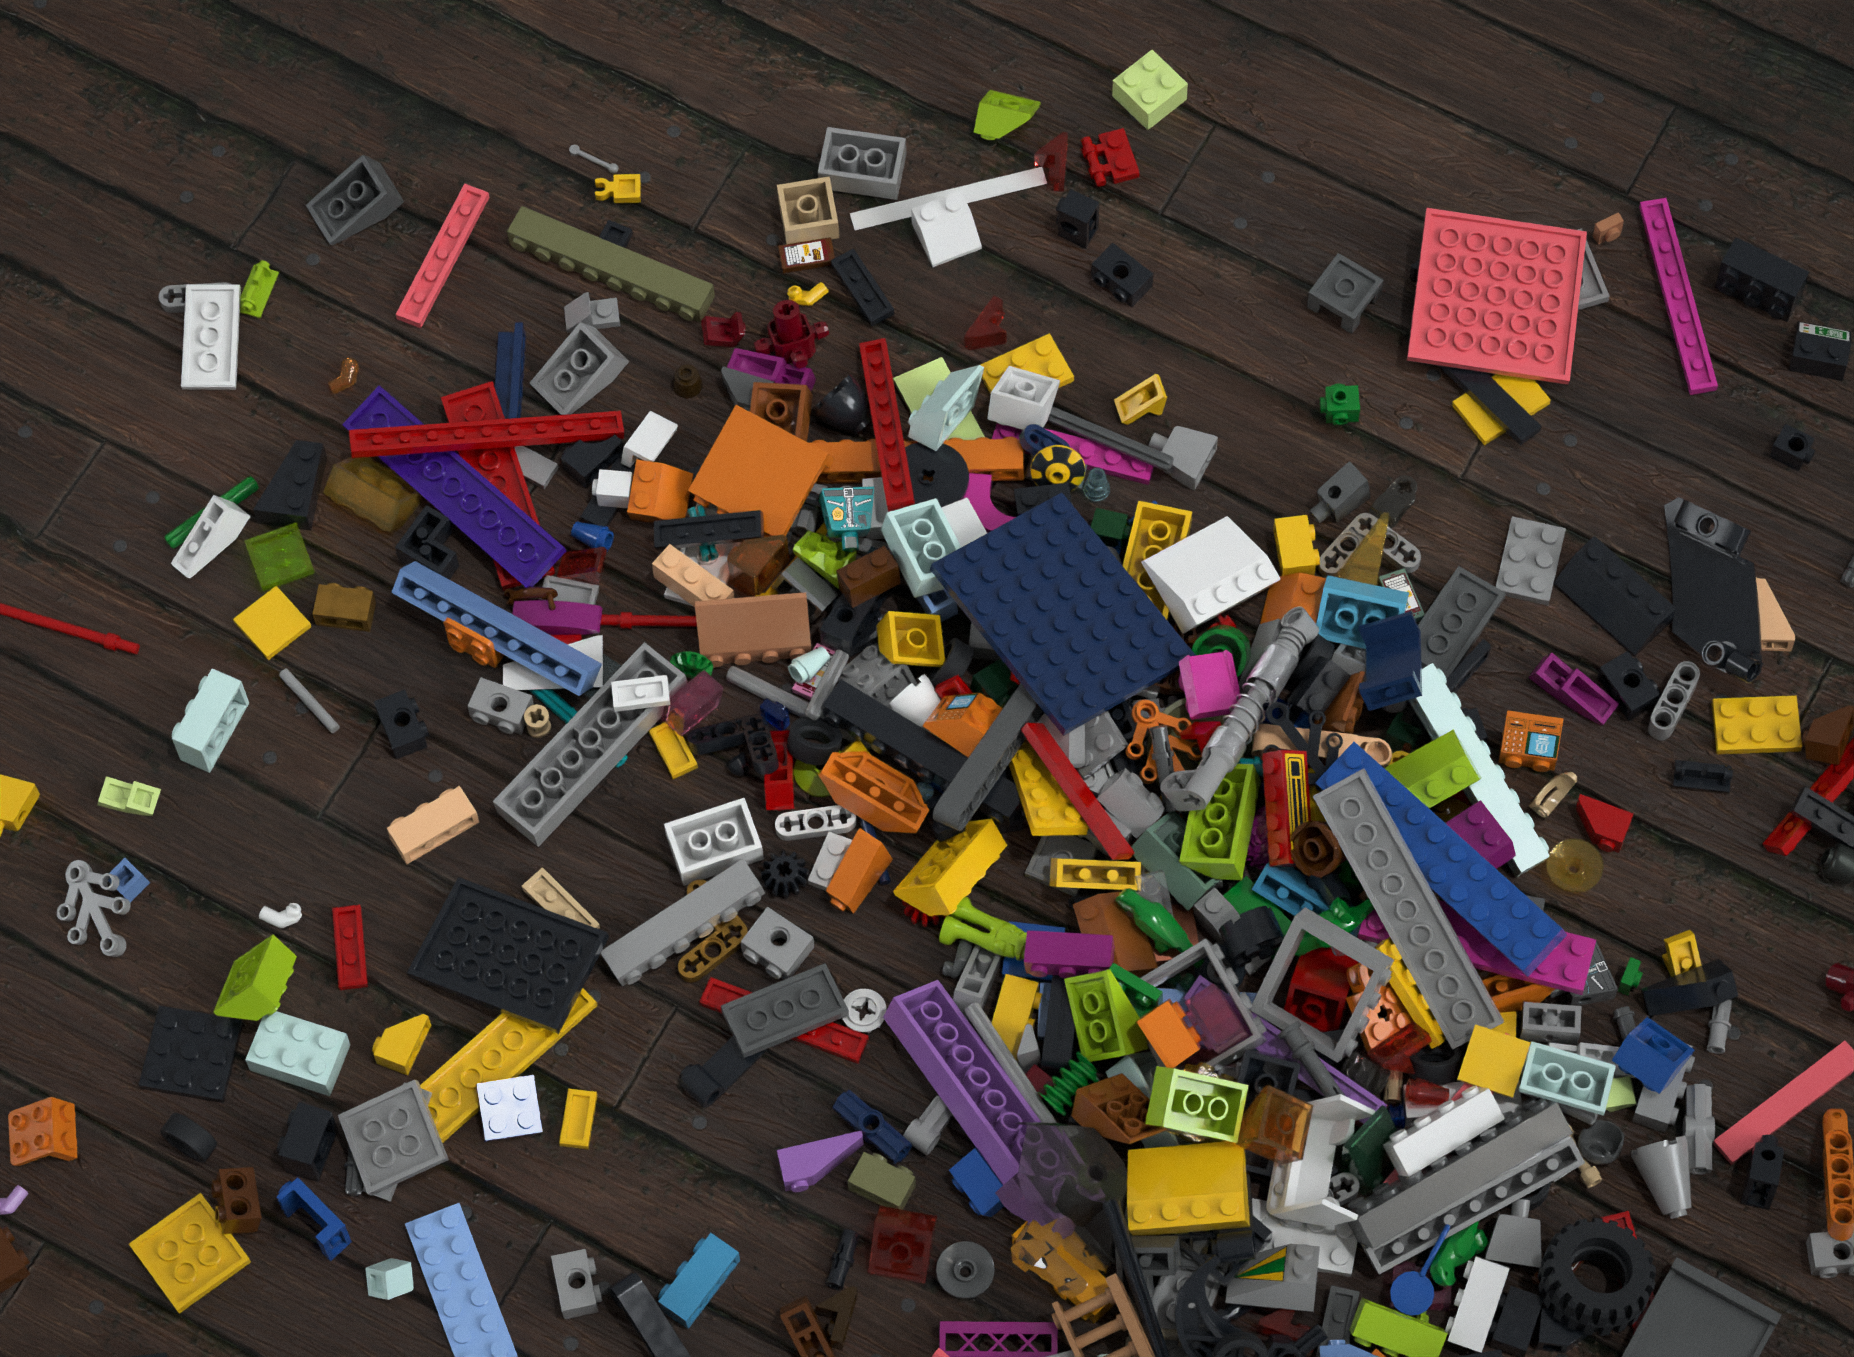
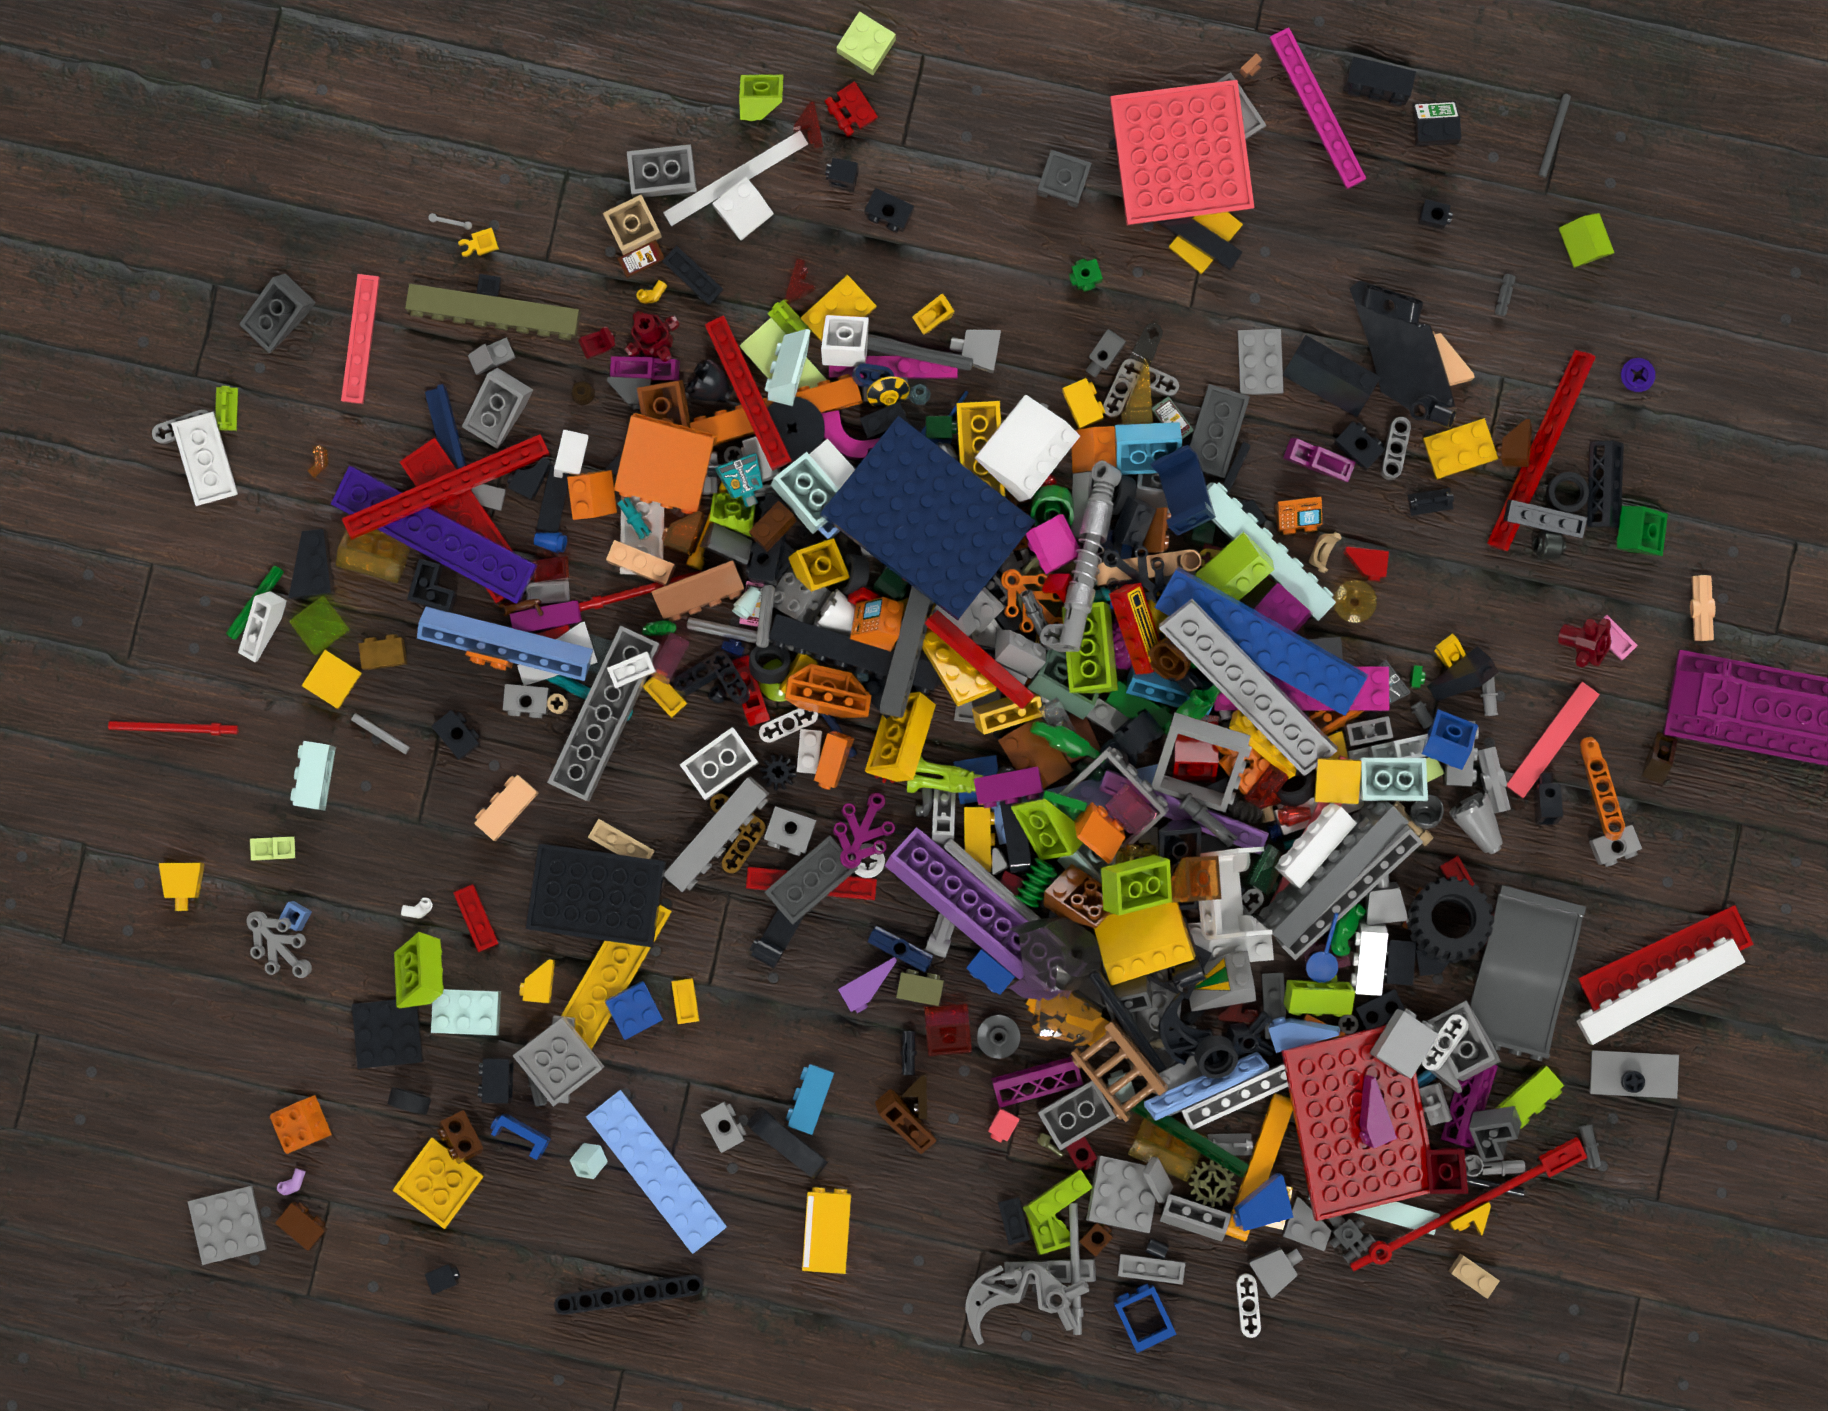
camera: 15 degrees left, 20 degrees up
(613, 488) = (555, 501): white brick -> none
(708, 529) = (640, 520): black plate -> none
(867, 971) = (861, 833): none -> magenta plant
(958, 358) = (787, 318): none -> lime hinge

